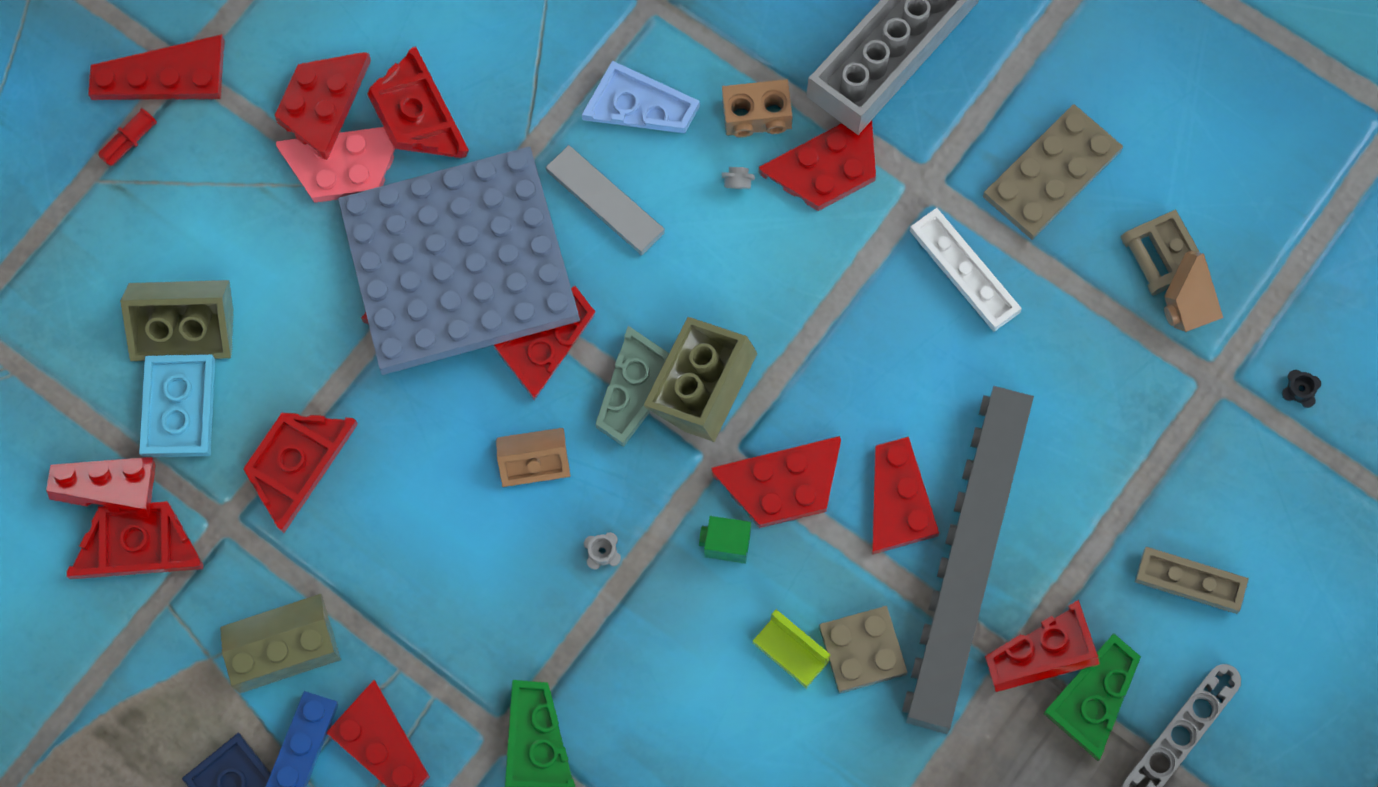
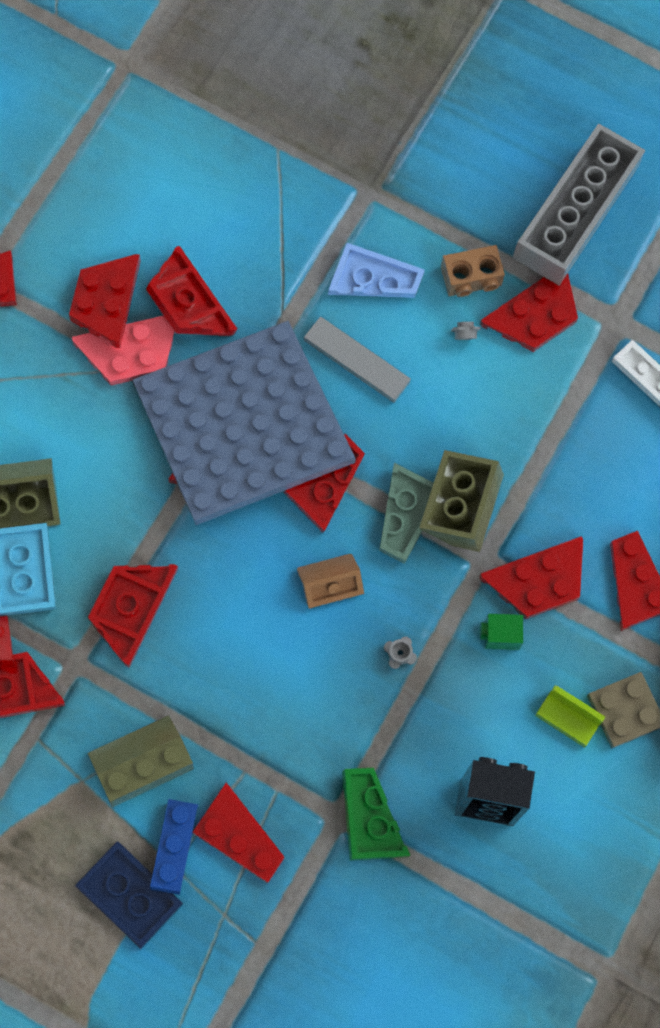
camera: 20 degrees left, 0 degrees up
(676, 726) = (495, 791): none -> black brick

